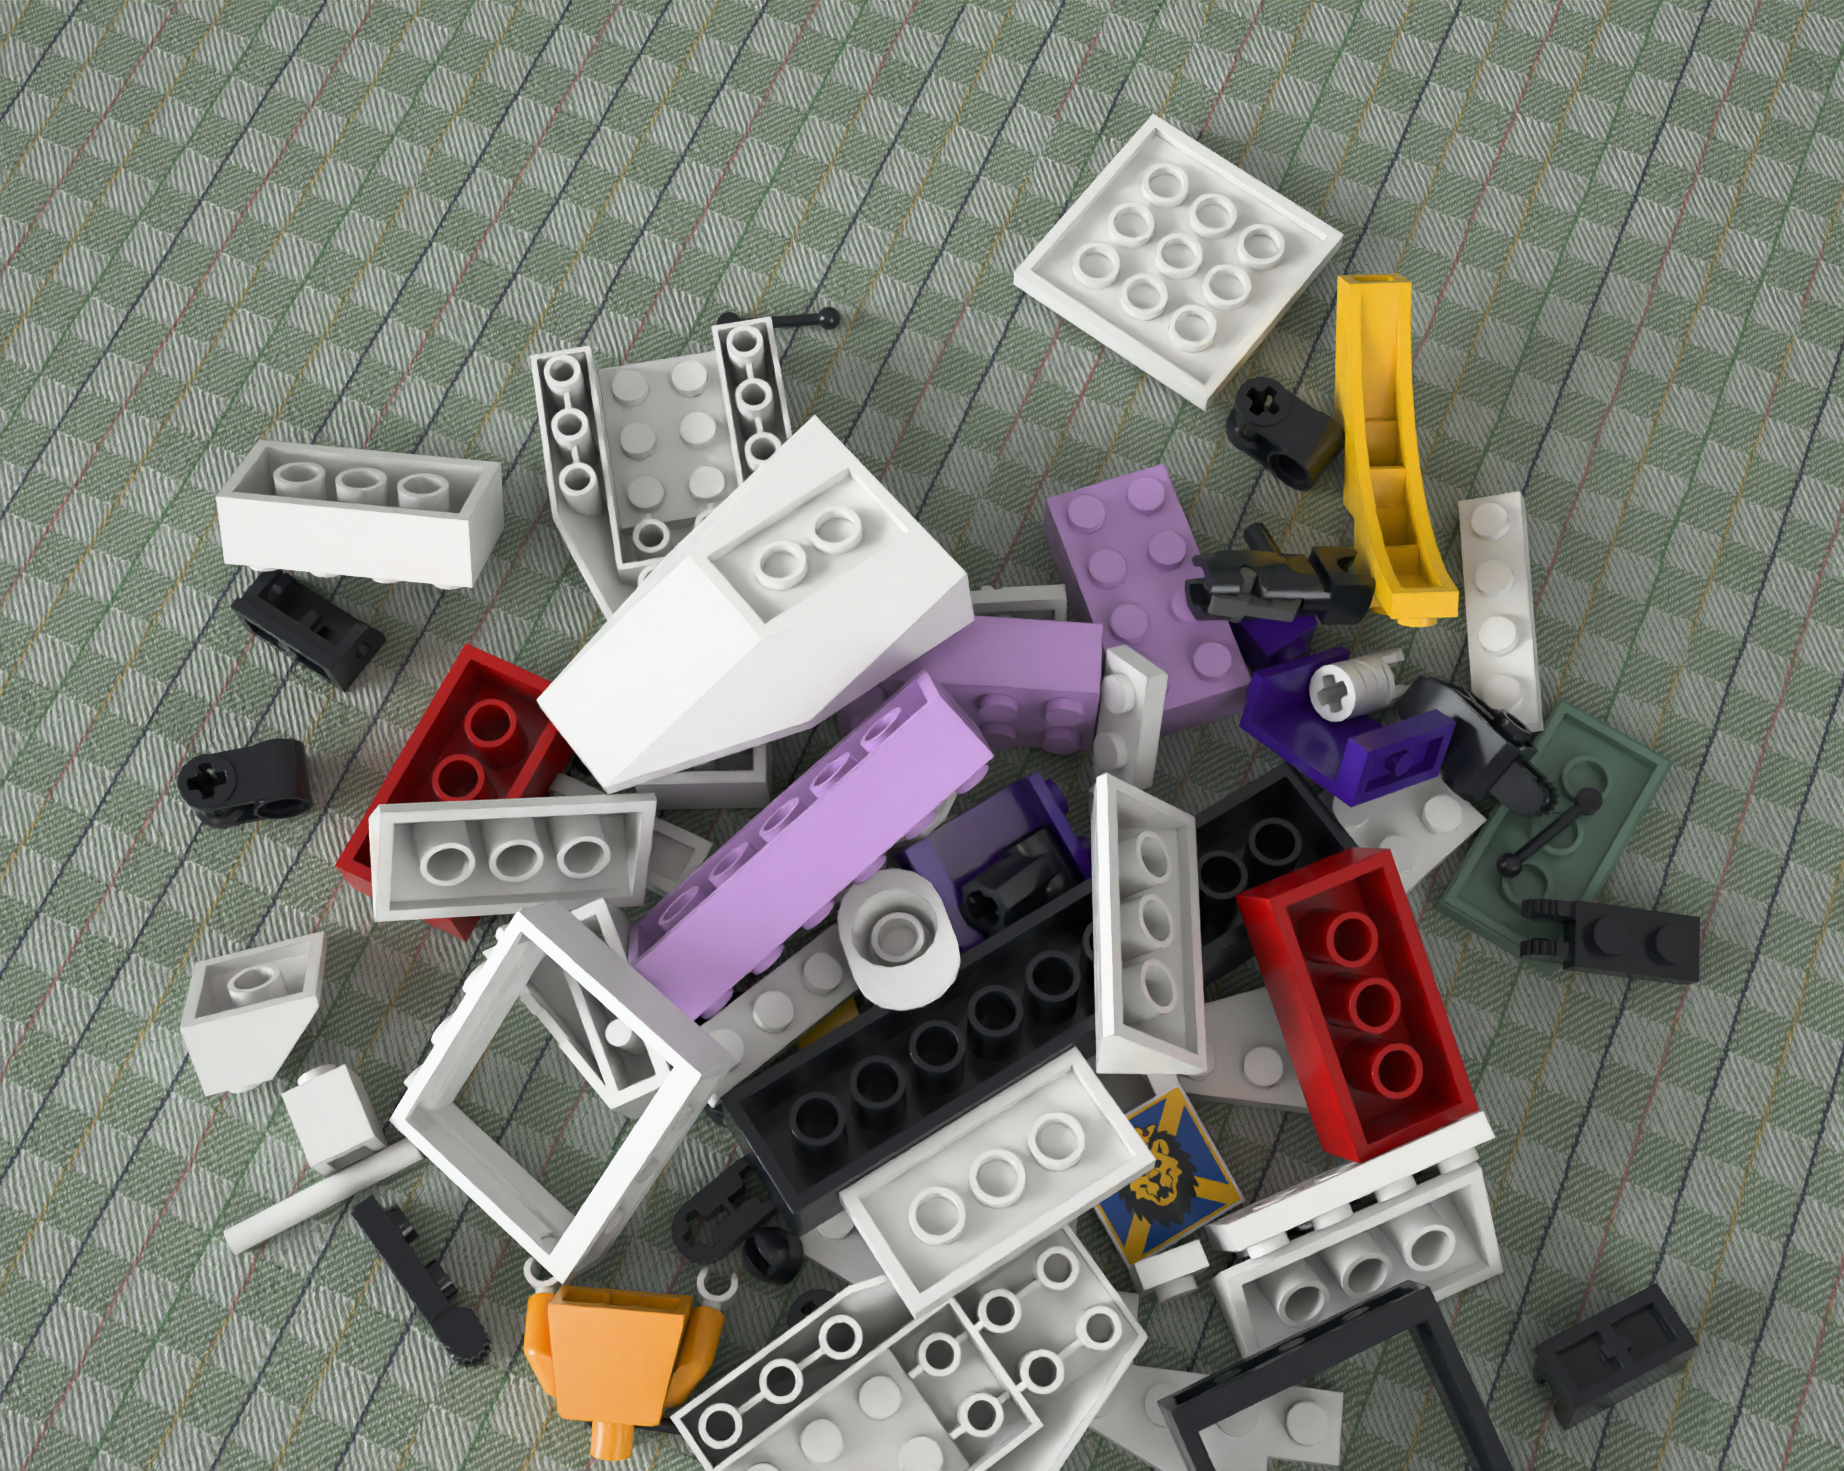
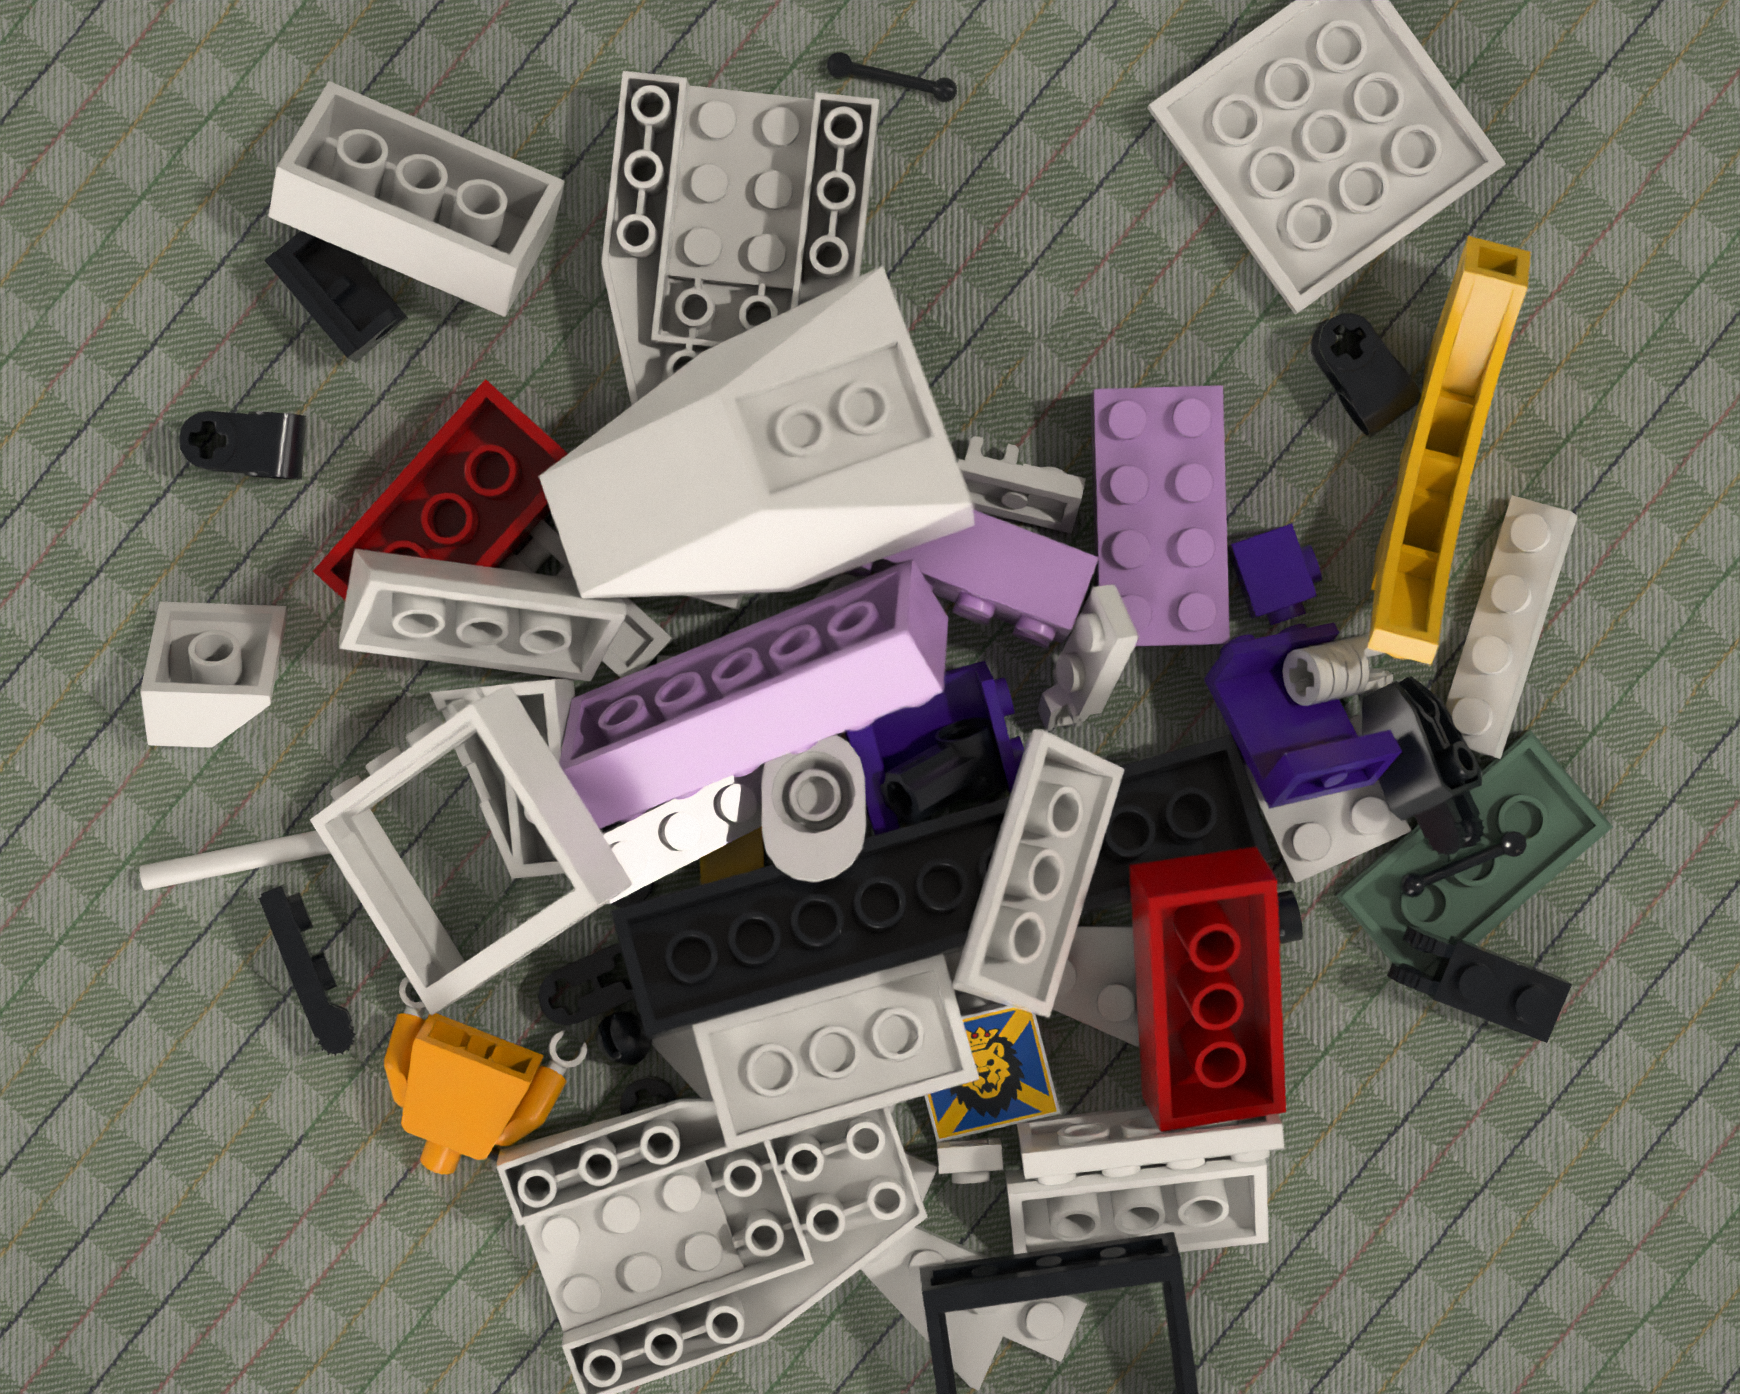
camera: 15 degrees right, 20 degrees up
(333, 1118) = (260, 797): white brick -> none
(1278, 584) = (1282, 558): black piece -> none
(1613, 1355) = (1330, 1344): black hinge -> none

